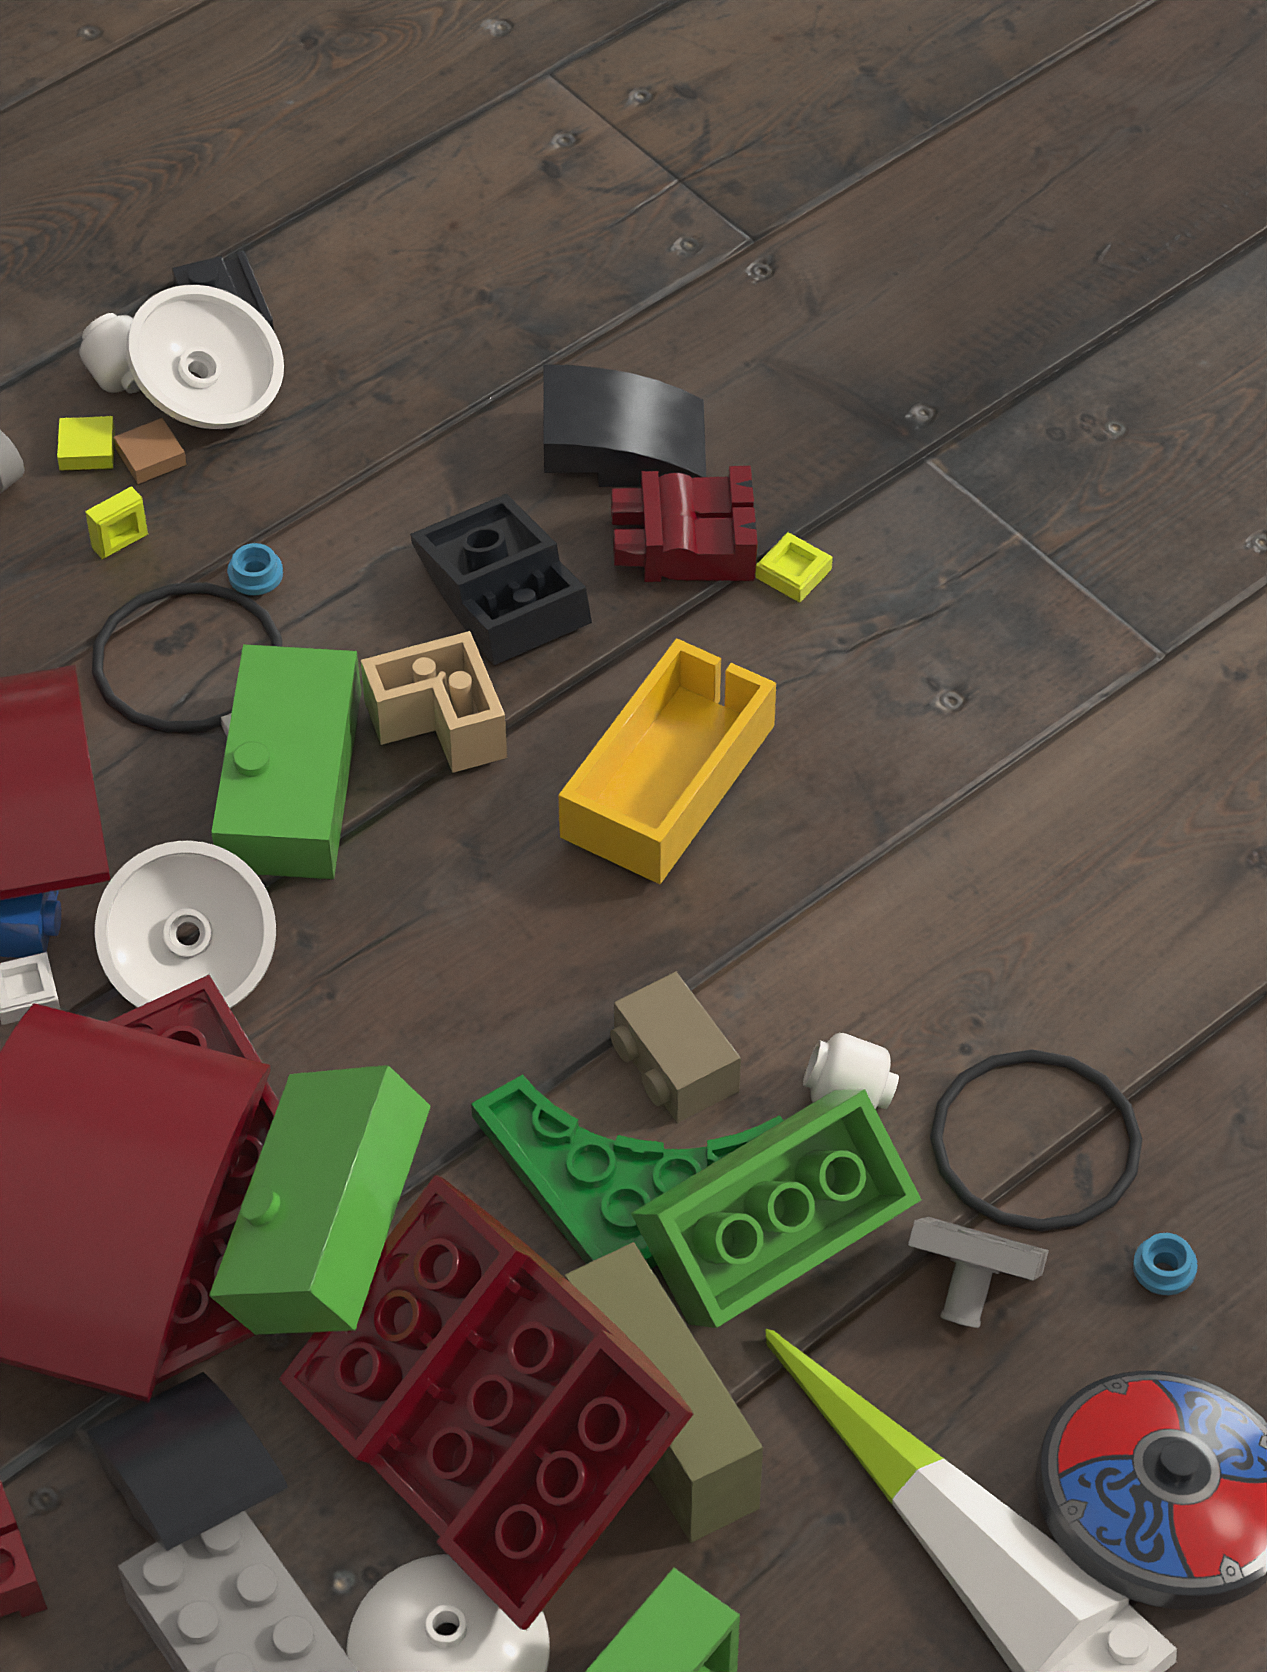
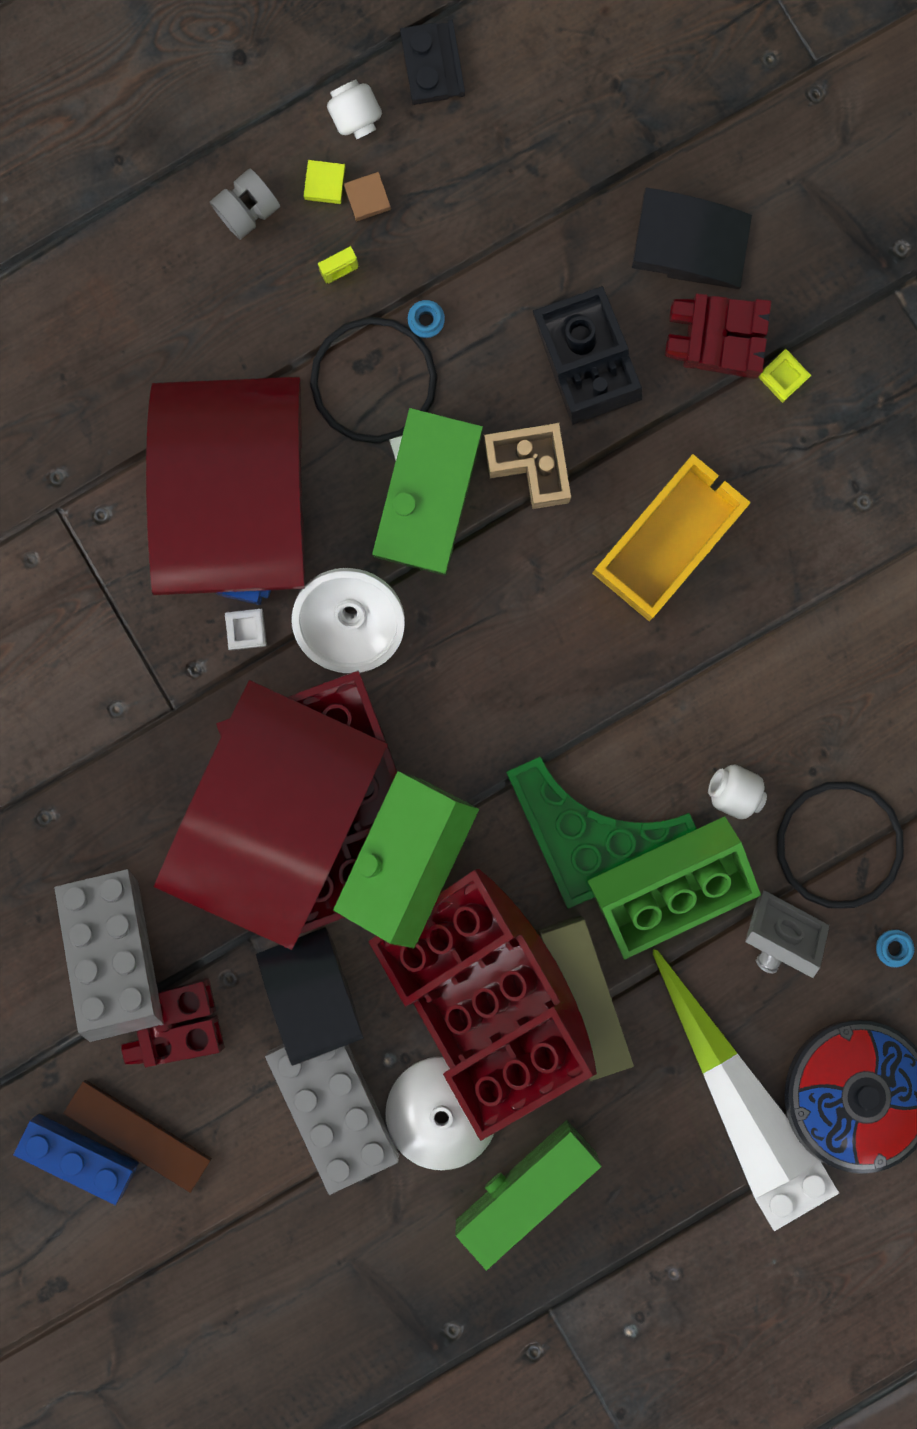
camera: 15 degrees right, 35 degrees up
(208, 335) = (435, 128): white dish -> none
(675, 1047) = (636, 751): dark tan brick -> none

